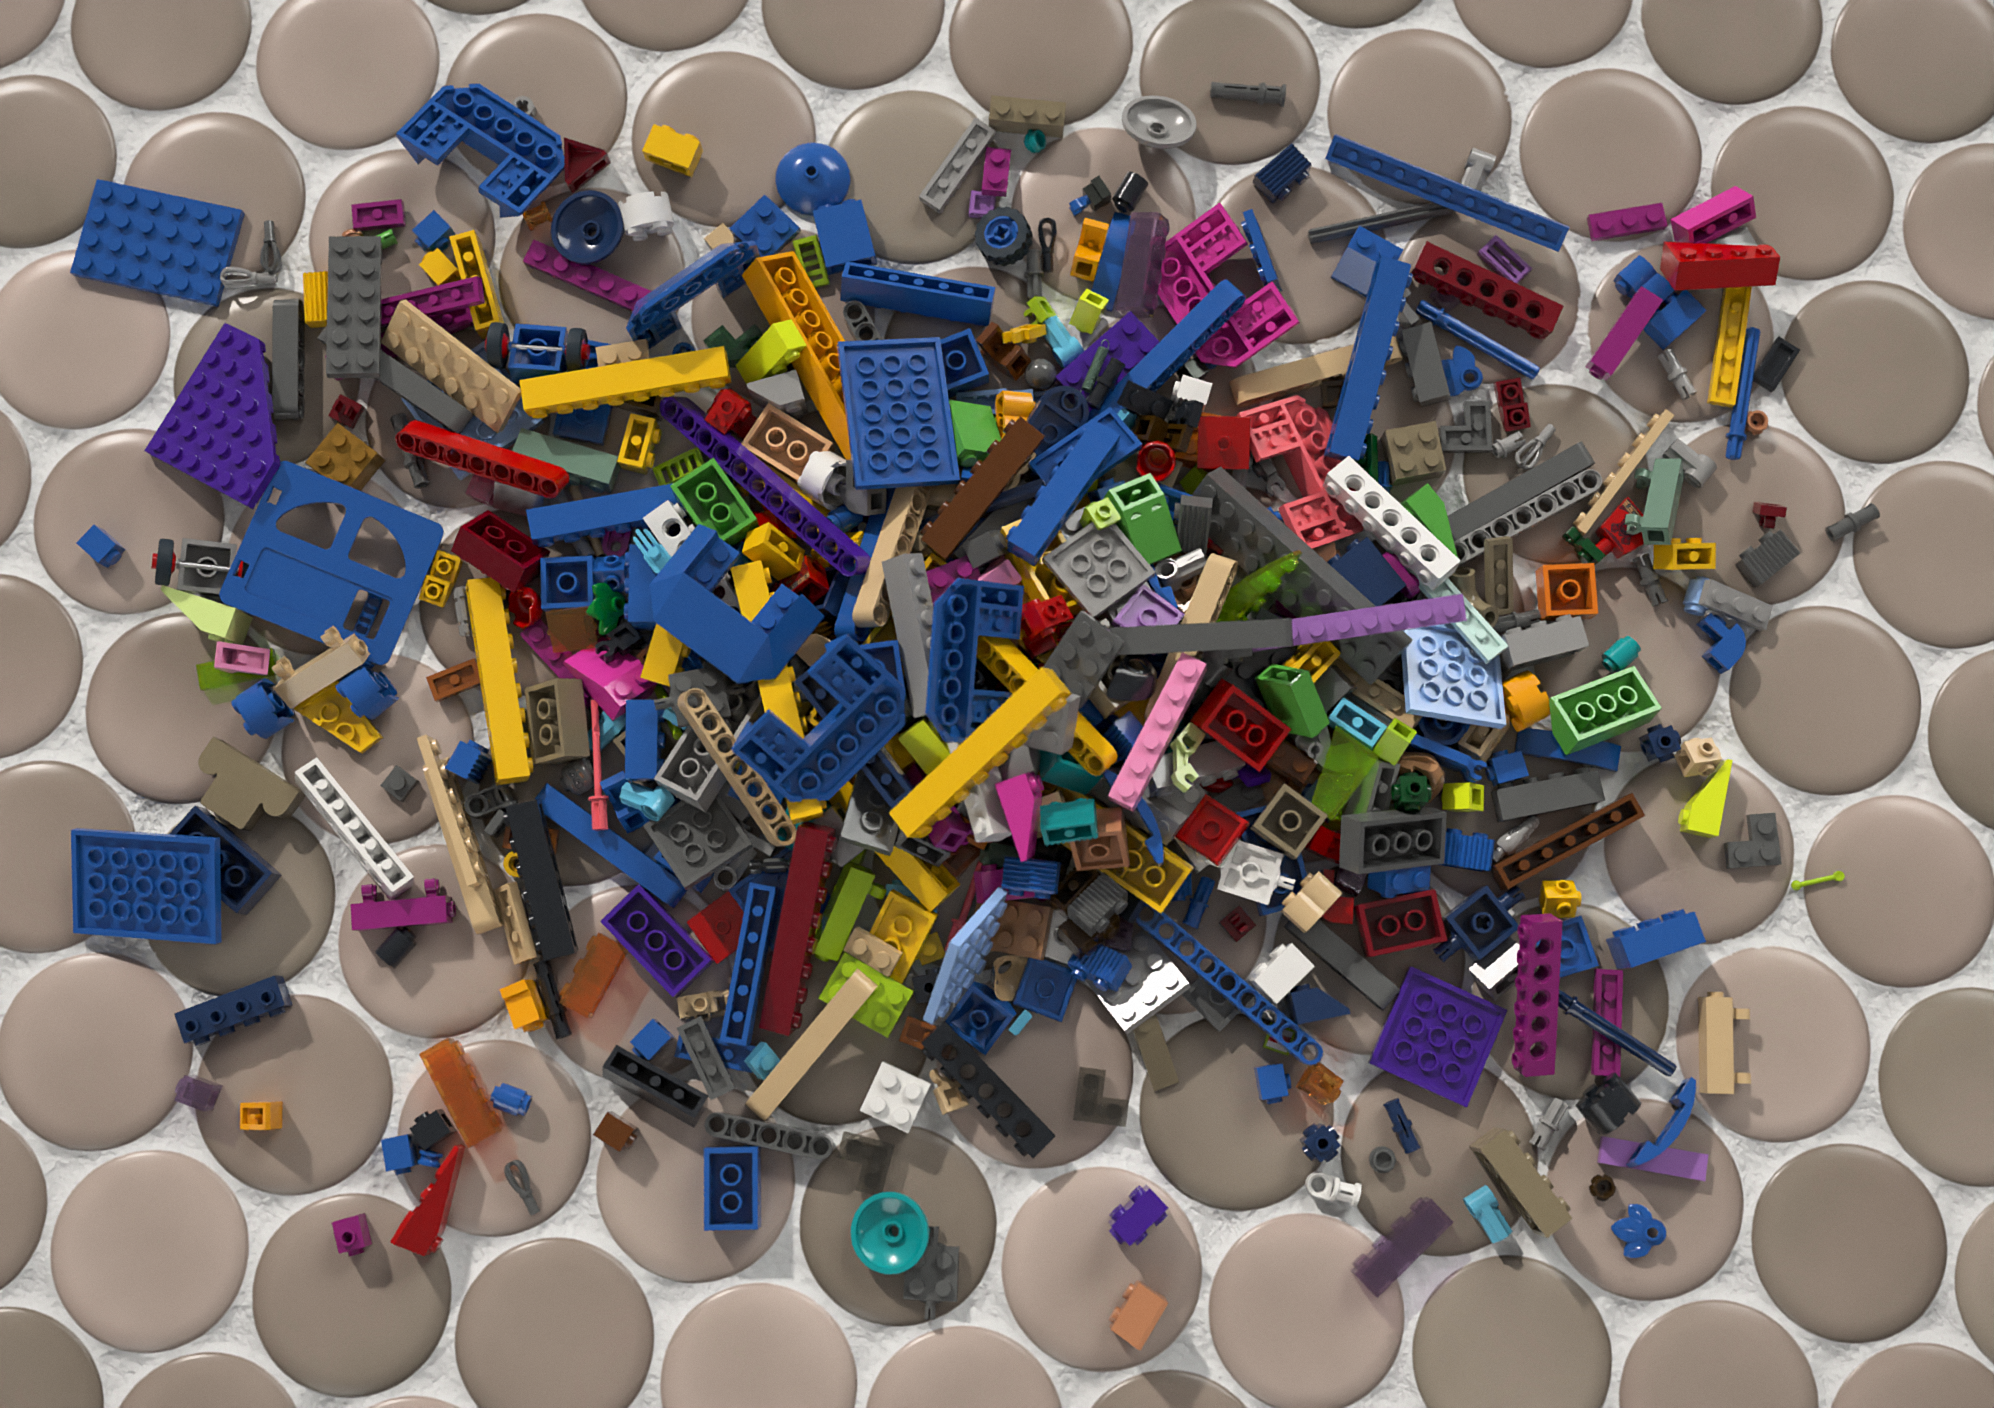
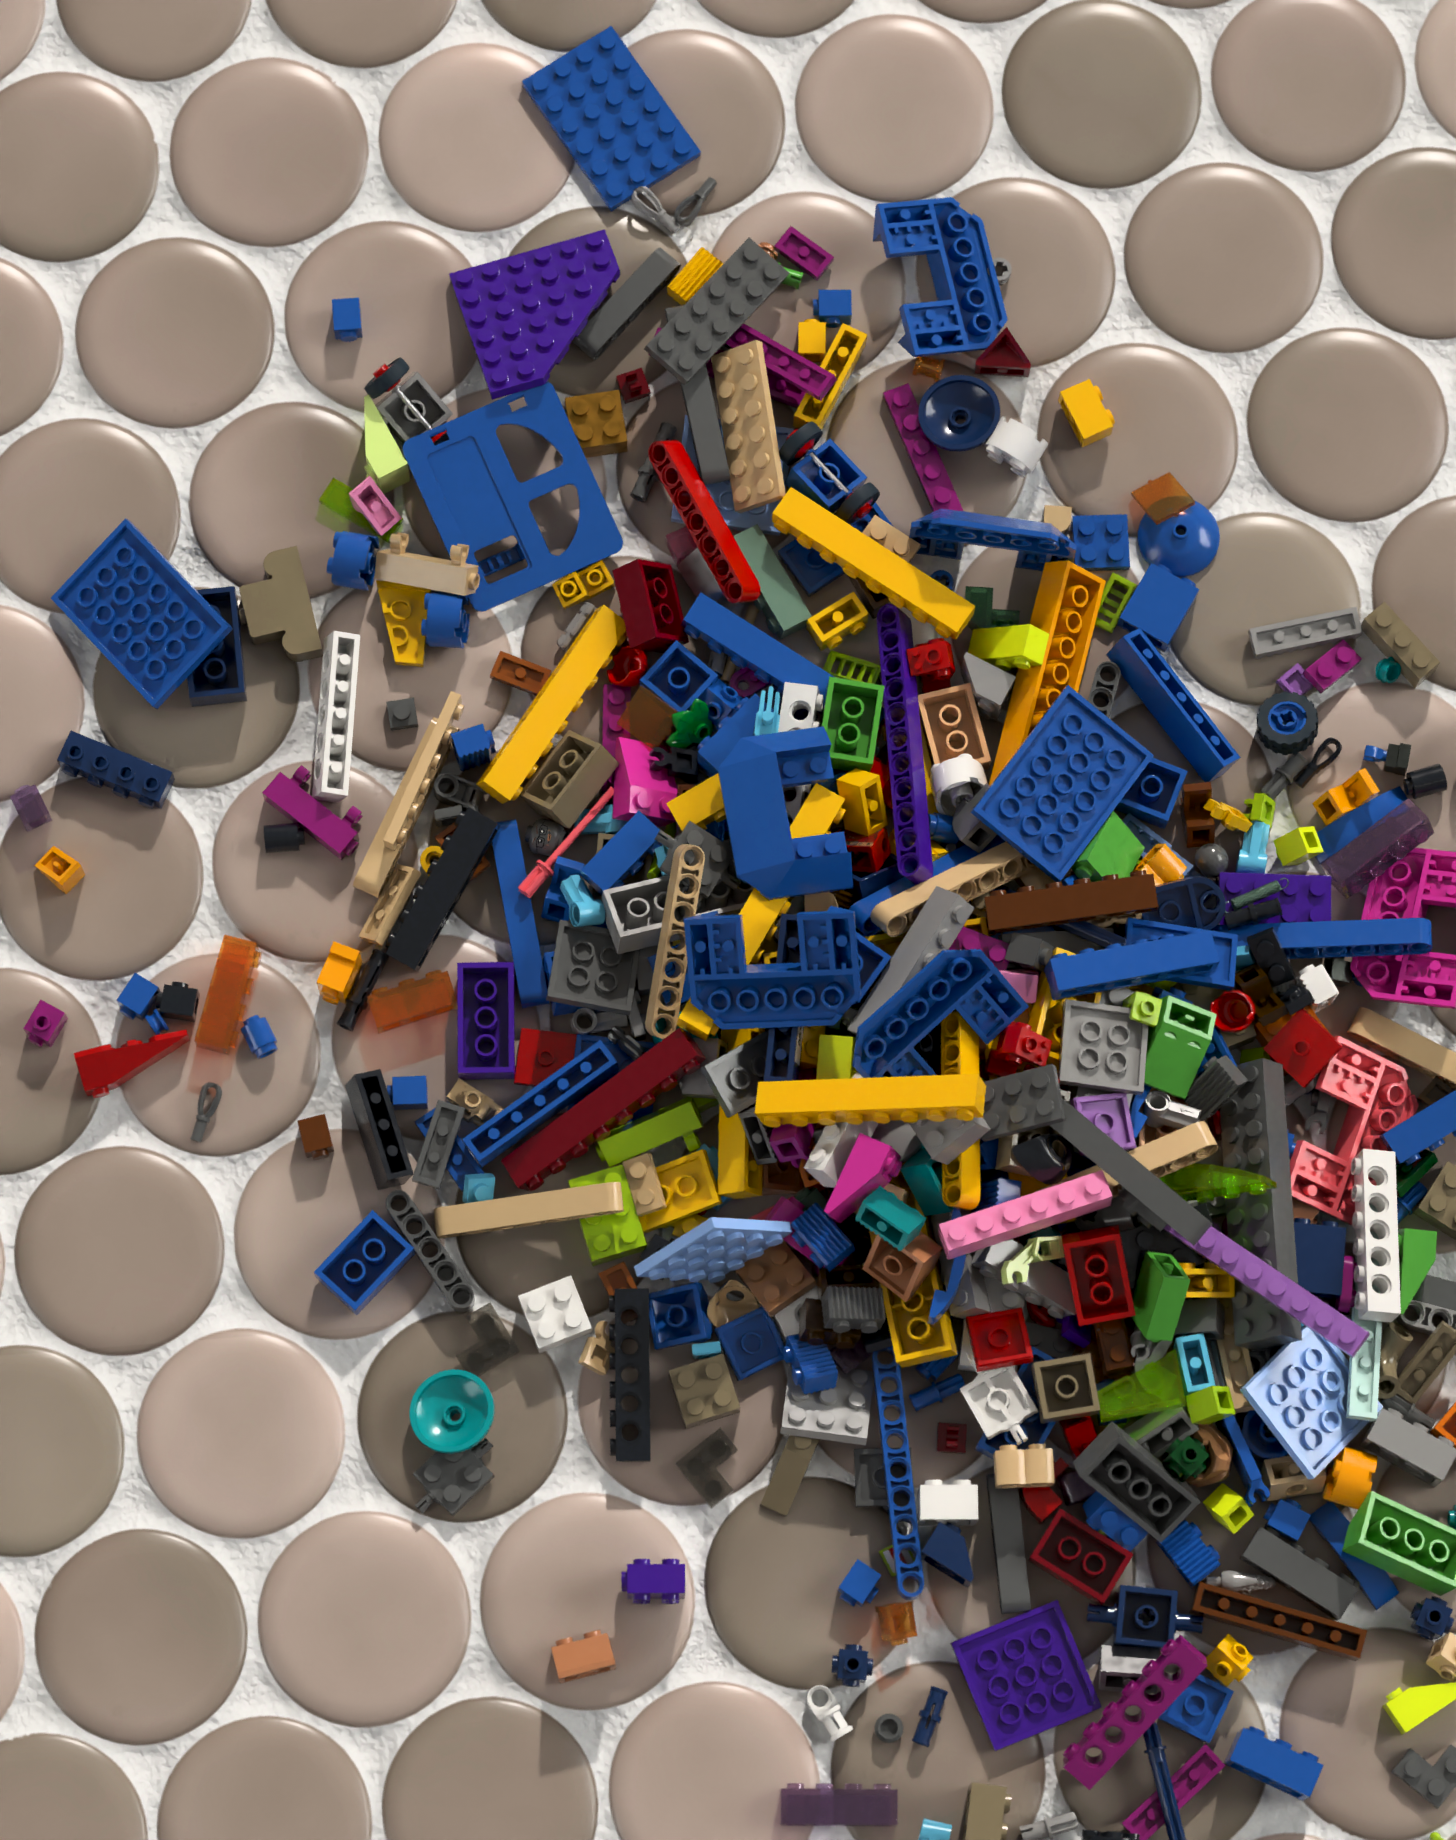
camera: 40 degrees right, 5 degrees down
(778, 161) = (1163, 498): none -> clear orange piece
(1046, 1052) = (704, 1391): none -> dark tan brick

